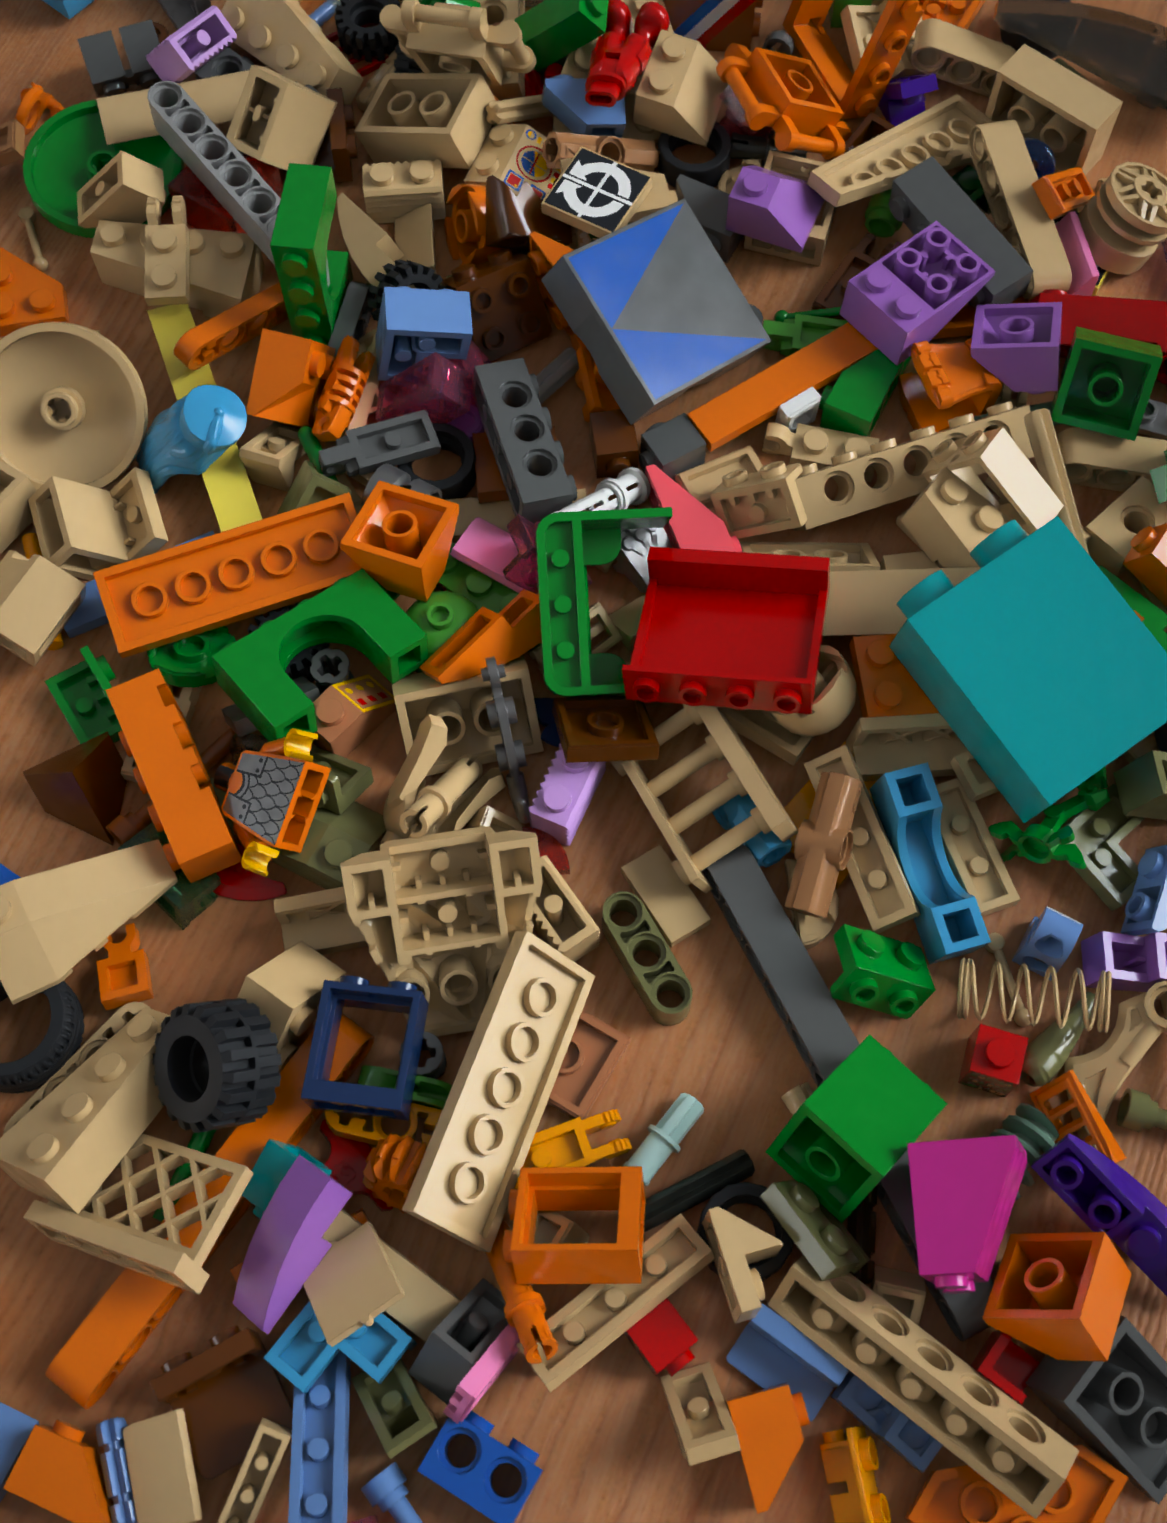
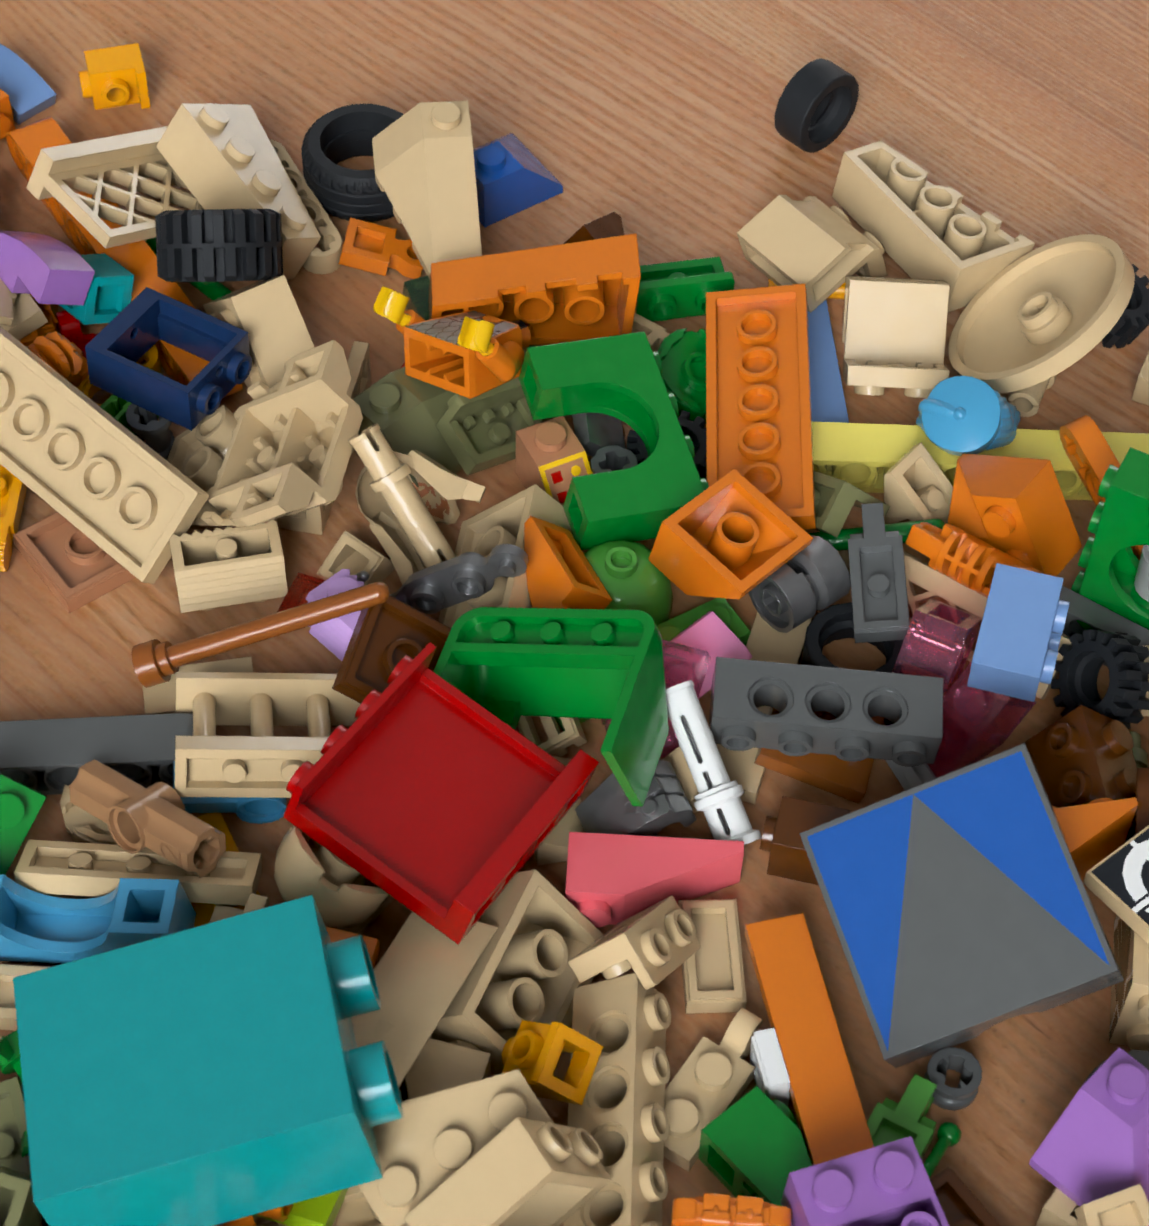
camera: 110 degrees right, 15 degrees down
(641, 936) = (100, 638): olive beam -> none
(671, 915) = (157, 661): none -> dark orange piece
(672, 446) = (770, 889): dark grey brick -> none
(868, 505) = (536, 1055): none -> light orange brick

